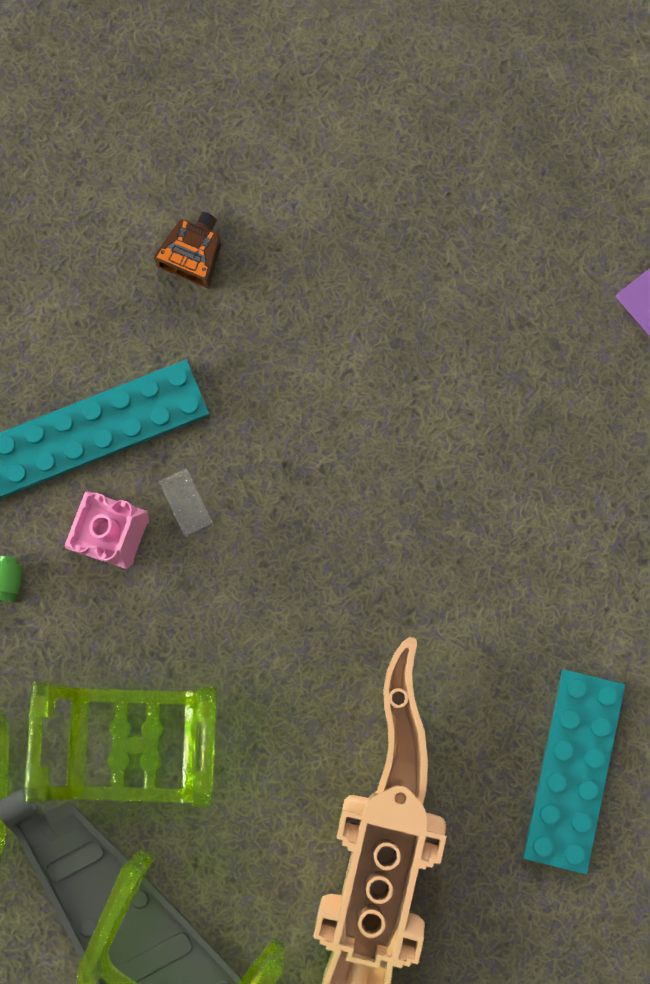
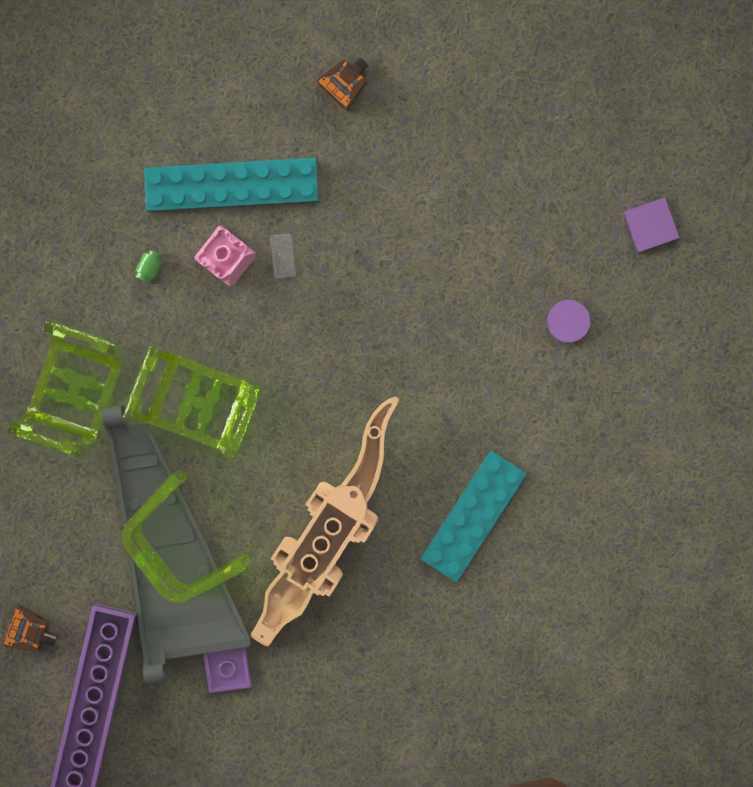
camera: 25 degrees right, 10 degrees up
(600, 459) = (568, 321): none -> medium lavender tile

